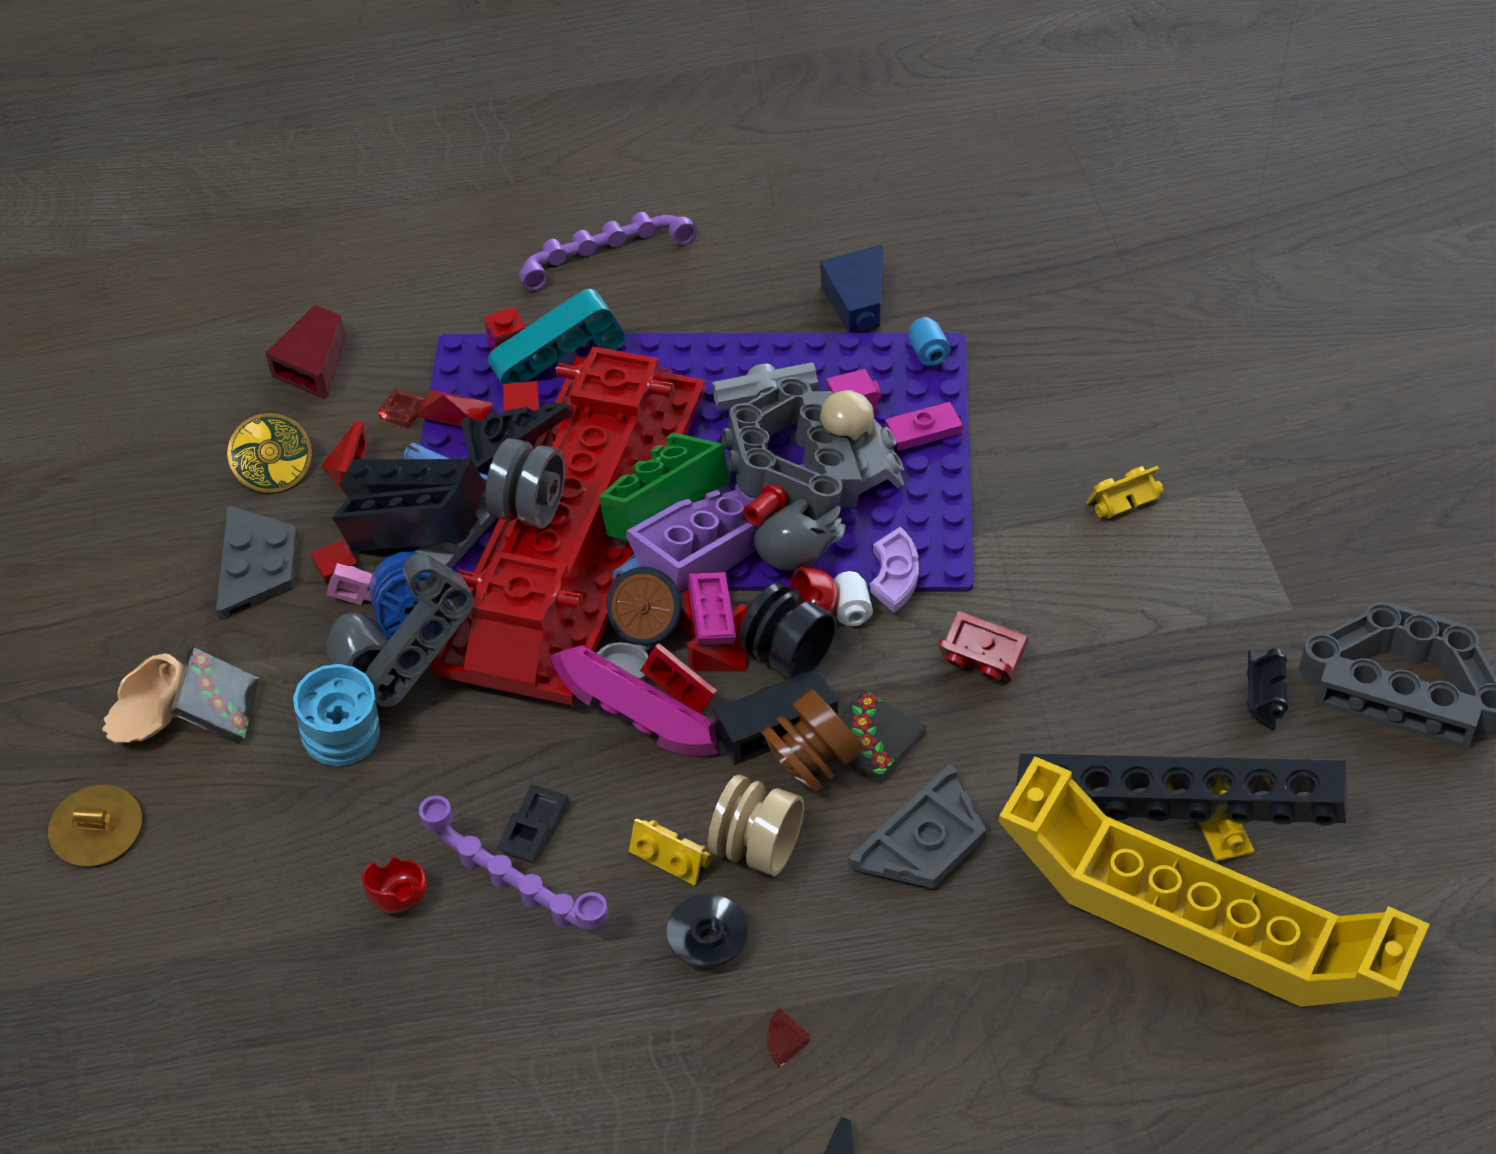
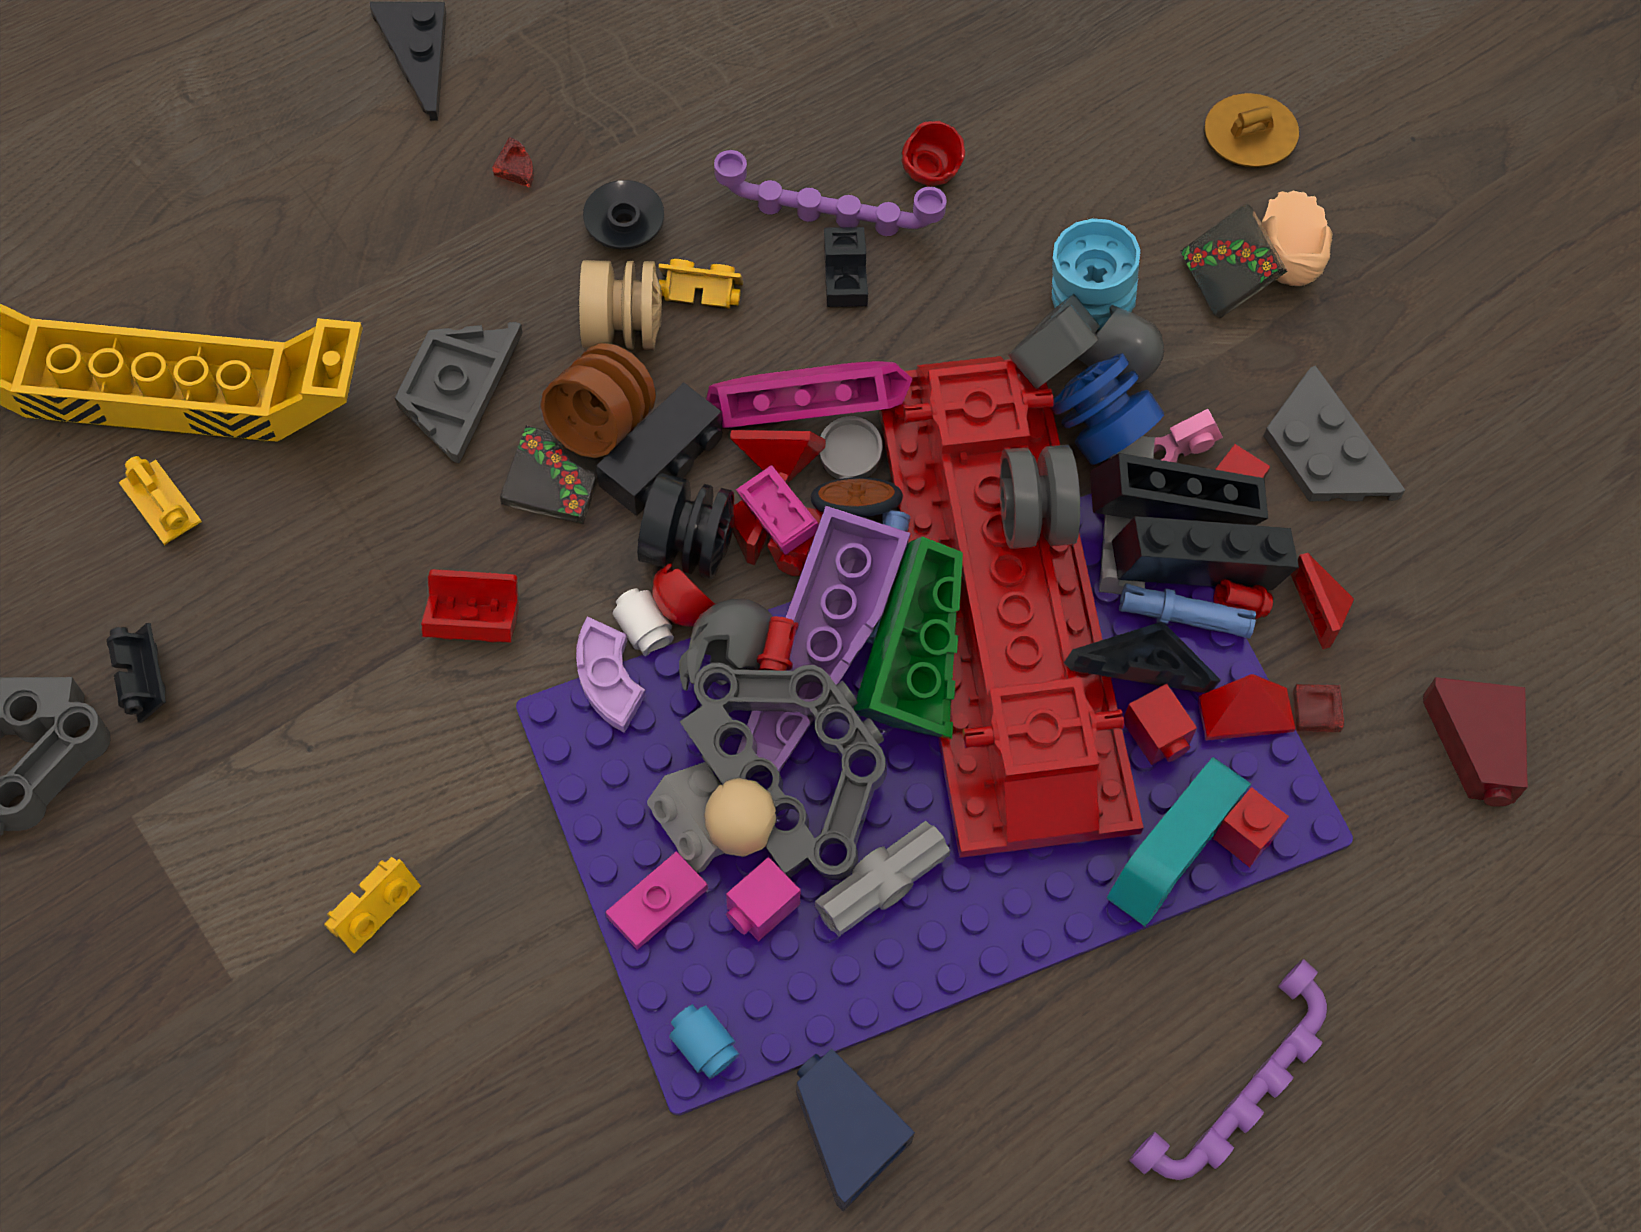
camera: 150 degrees right, 15 degrees up
(269, 453) = (1412, 566): shield -> none
(1203, 777) = (123, 485): black brick -> none

